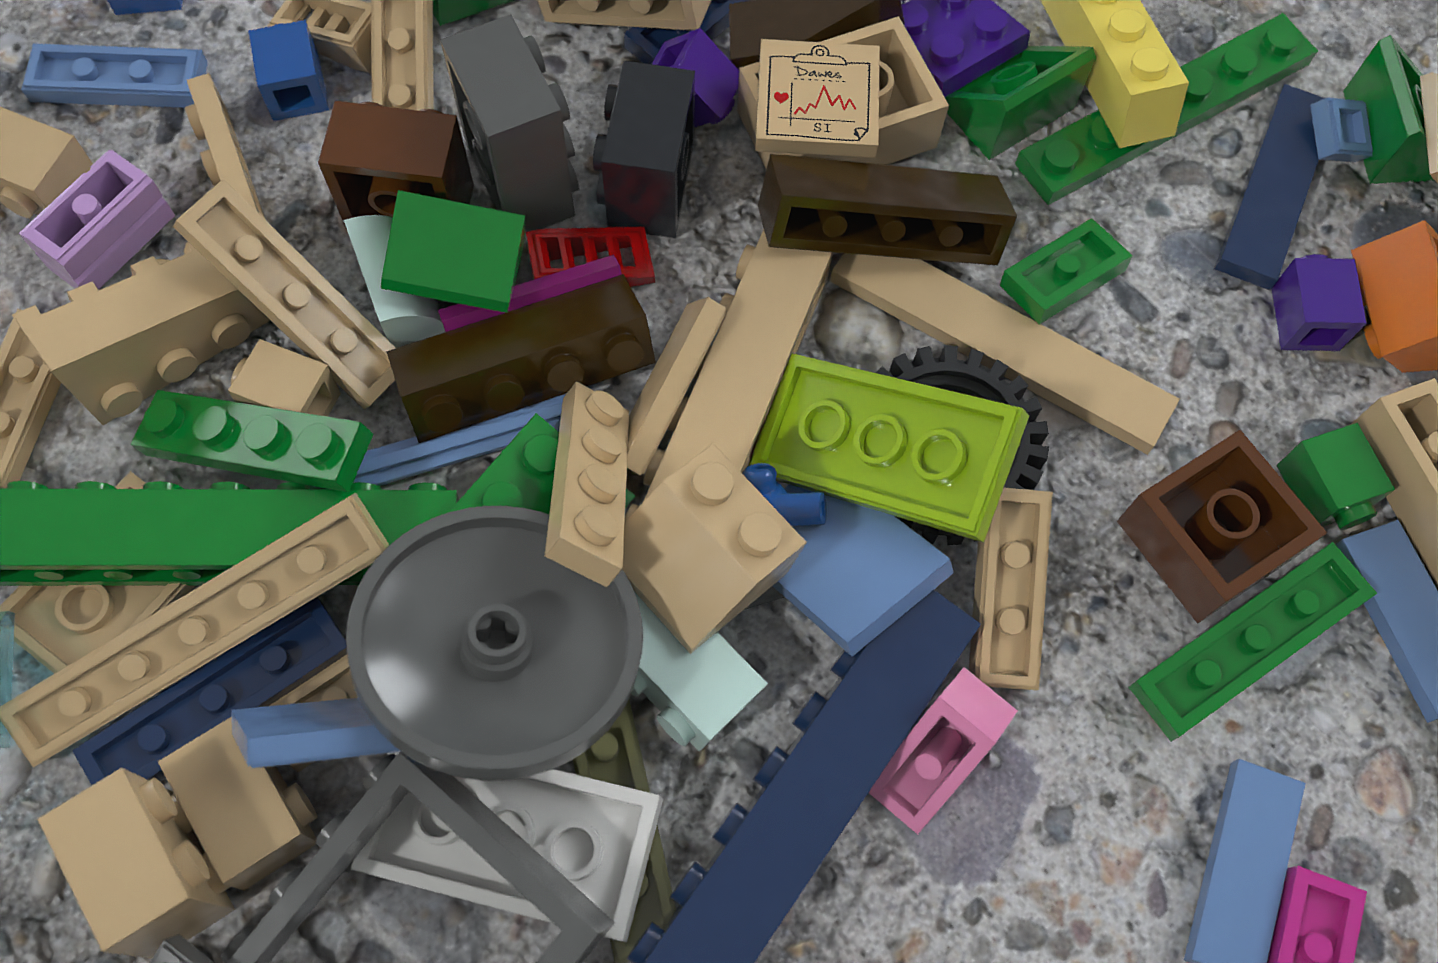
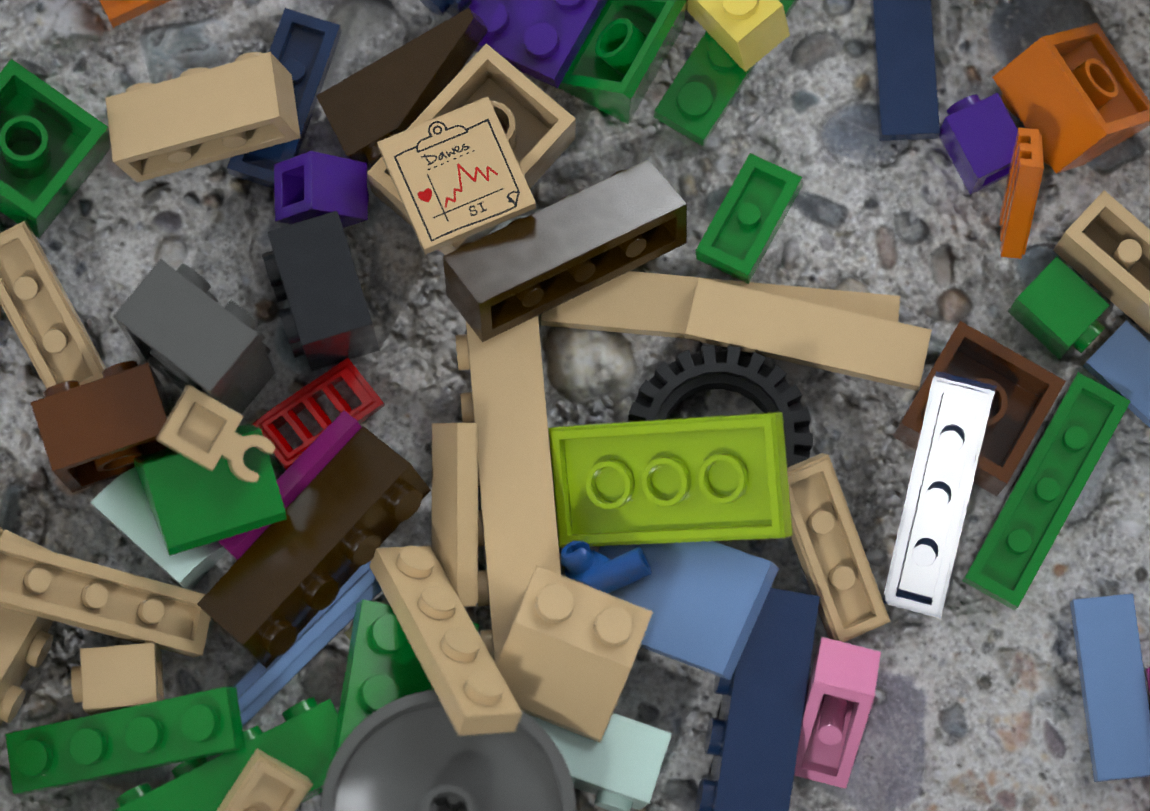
camera: 25 degrees left, 10 degrees up
(472, 185) = (206, 431): none -> tan plate
(1080, 389) = (808, 334): none -> tan tile
(1148, 580) = (938, 494): none -> tile
(1345, 350) = (1021, 192): none -> orange tile

